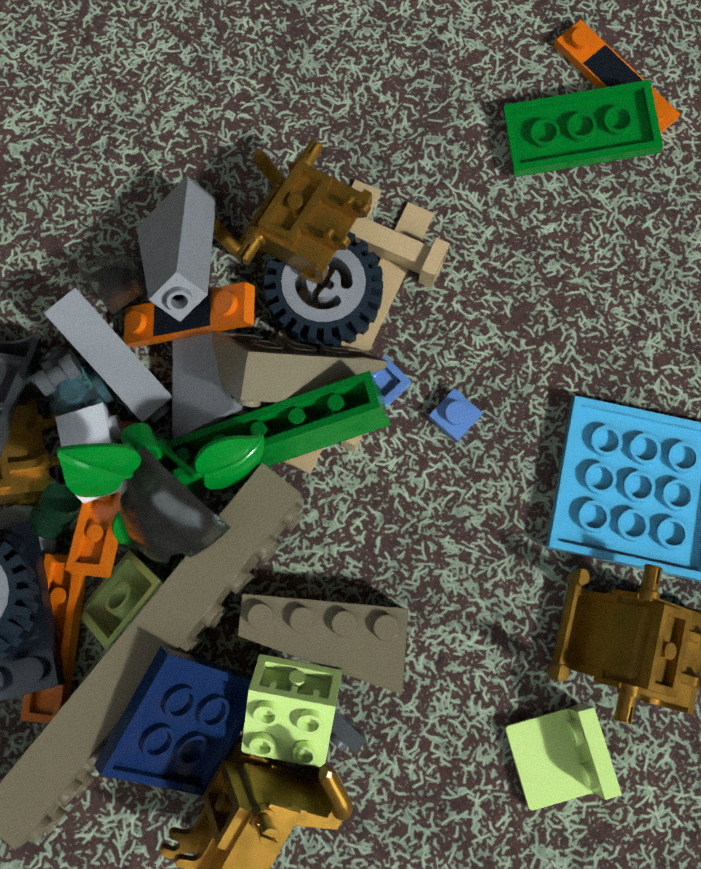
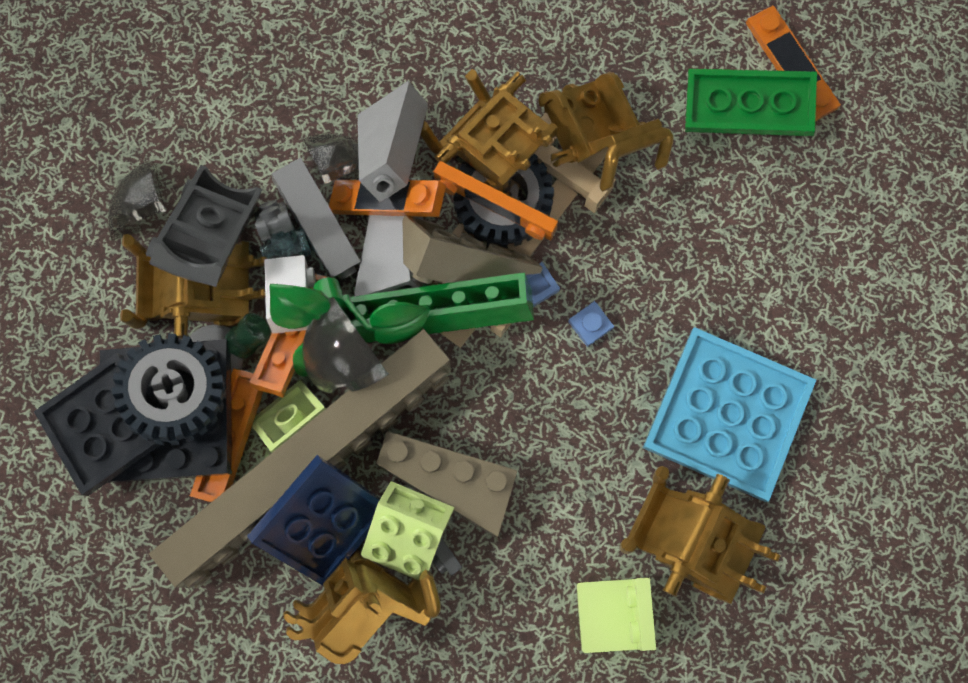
camera: 10 degrees right, 0 degrees up
(368, 309) = (536, 223): none -> orange plate
(417, 177) = (599, 118): none -> pearl gold piece

